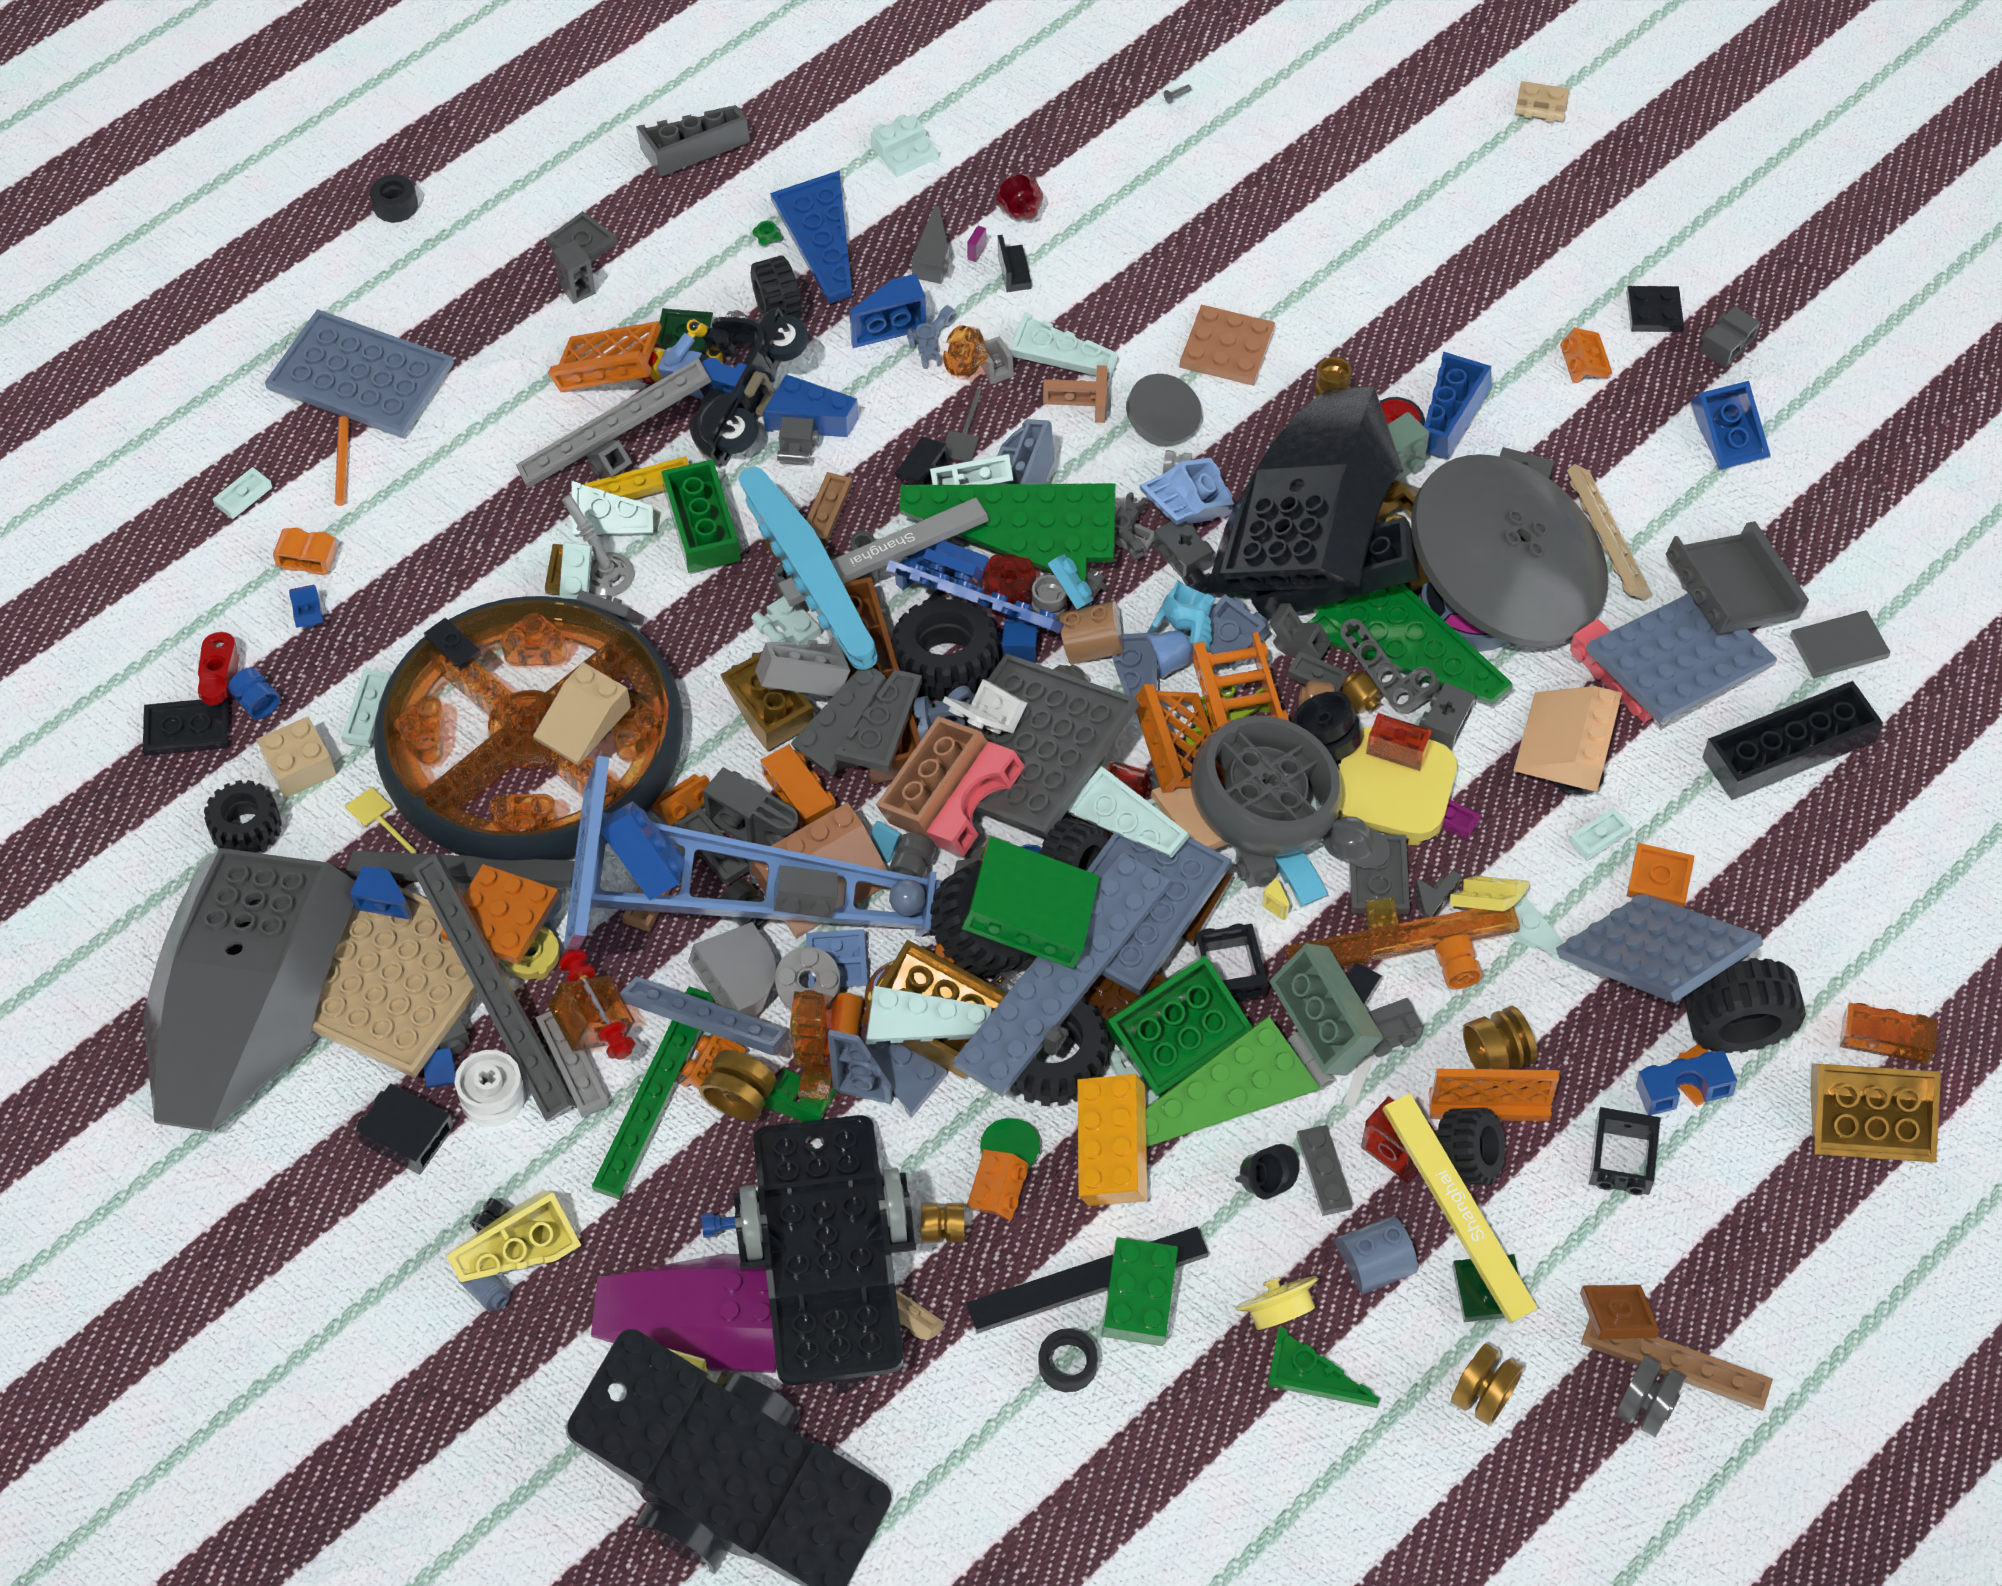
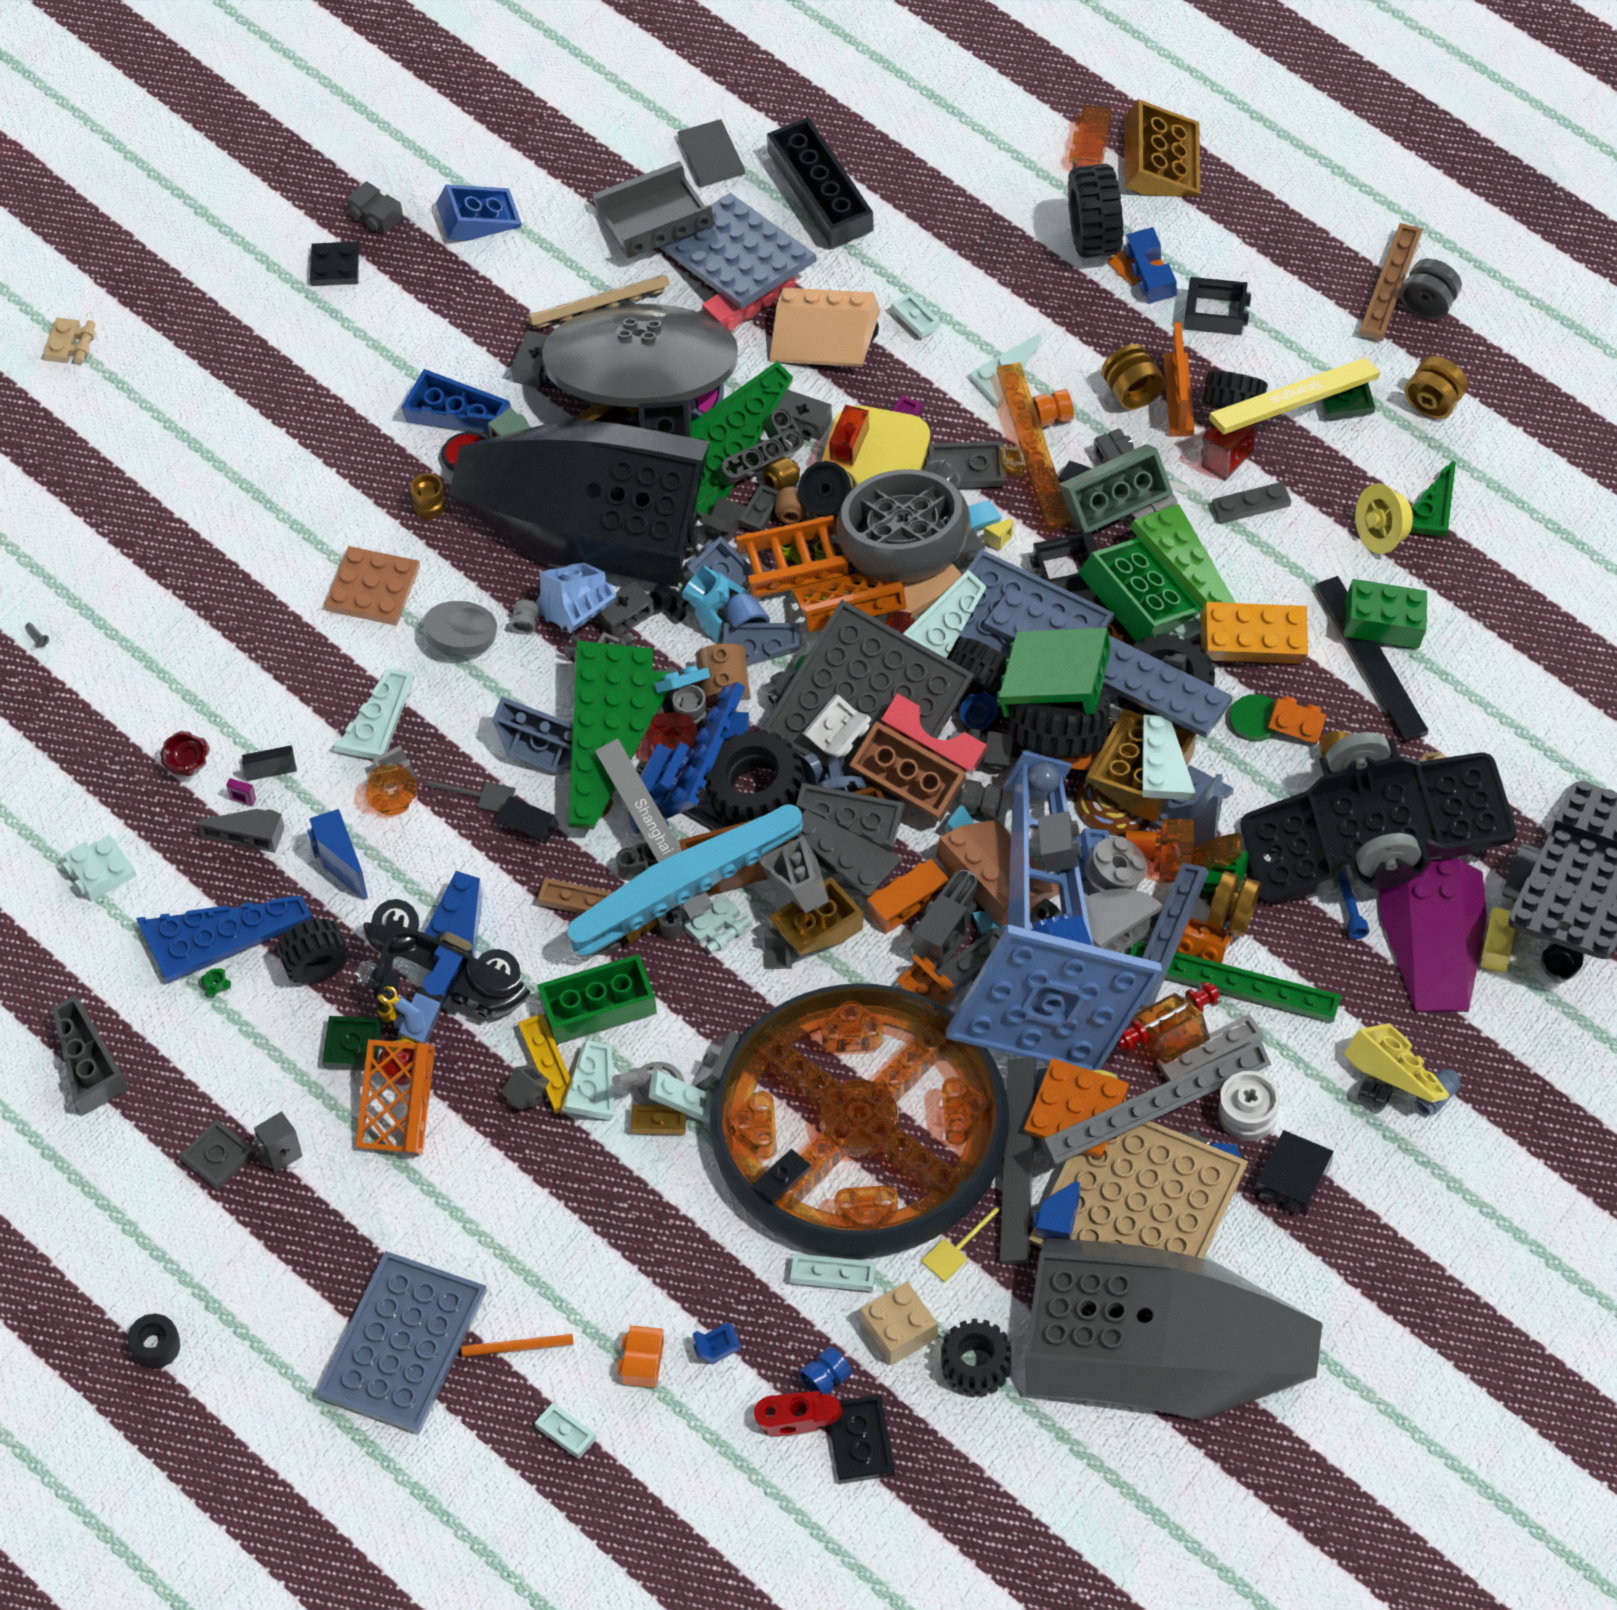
camera: 90 degrees left, 0 degrees up
(582, 713) = (863, 1050): tan slope -> none
(613, 423) = (489, 1079): light grey tile -> none
(797, 439) = (493, 929): dark grey brick -> none
(927, 333) = (362, 832): sand blue piece -> none
(983, 471) = (552, 771): light aqua slope -> none
(1074, 1338) = (1443, 681): black tyre -> none
(1079, 393) = (435, 683): nougat bracket -> none
(1269, 1171) = (1263, 539): black piece -> none
(1378, 1254) = (1322, 465): sand blue brick -> none
(1432, 900) = (990, 424): dark grey slope -> none
(1489, 893) = (988, 383): light yellow slope -> none
(1585, 355) = (394, 314): orange bracket -> none
(1619, 1311) = (1357, 311): dark orange tile -> none
(1659, 947) = (1048, 260): sand blue plate -> none
(1660, 874) = (954, 277): orange plate -> none

